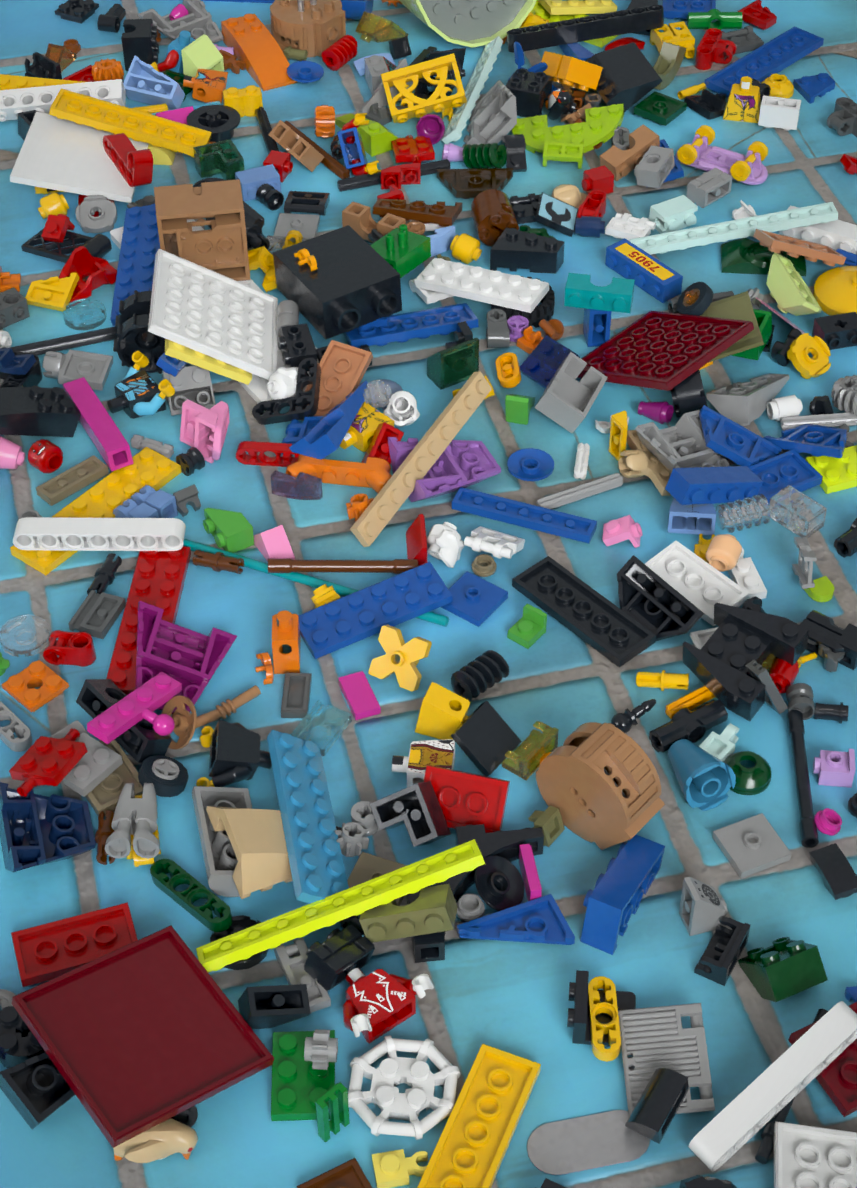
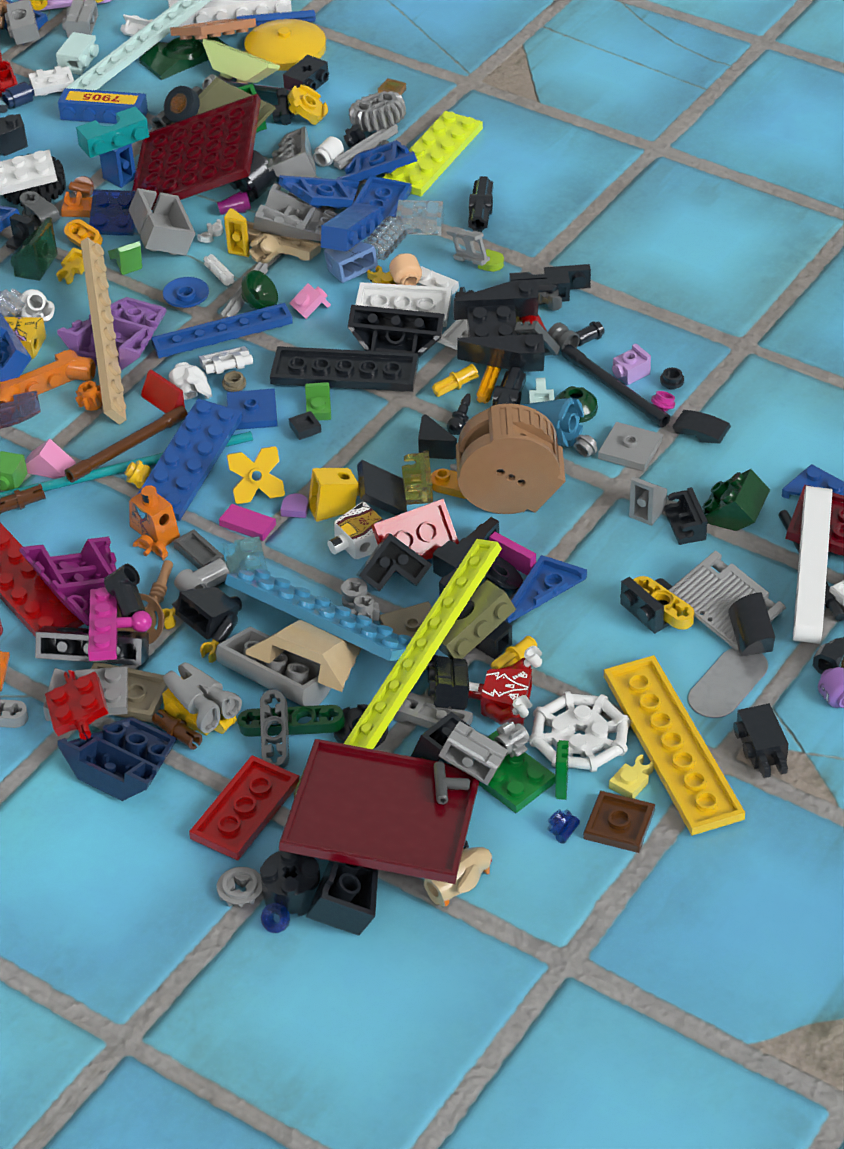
camera: 40 degrees left, 0 degrees up
(151, 896) = (281, 709): none -> dark grey beam
(166, 775) = (167, 659): black wheel -> none
(174, 693) = (123, 586): none -> black piece
(221, 1045) = (443, 783): none -> dark grey piece
(261, 721) = (205, 577): none -> light grey piece
(271, 1037) = (473, 753): none -> light grey brick
(289, 1165) = (562, 825): none -> clear blue plate
(379, 444) = (49, 340): red slope -> none
(409, 706) = (294, 506): none -> medium lavender tile
(435, 970) = (513, 653): none -> yellow axle
(479, 675) = (325, 449): black piece -> none
(495, 639) = (305, 425): none -> black plate
(516, 327) = (54, 196): medium lavender wheel -> none
(551, 823) = (483, 512): olive tile -> none
(578, 714) = (436, 440): none -> black slope
(594, 496) = (261, 287): none -> dark green piece
(620, 892) = (587, 525): blue wedge -> none
(708, 817) = (585, 445): none -> light grey plate

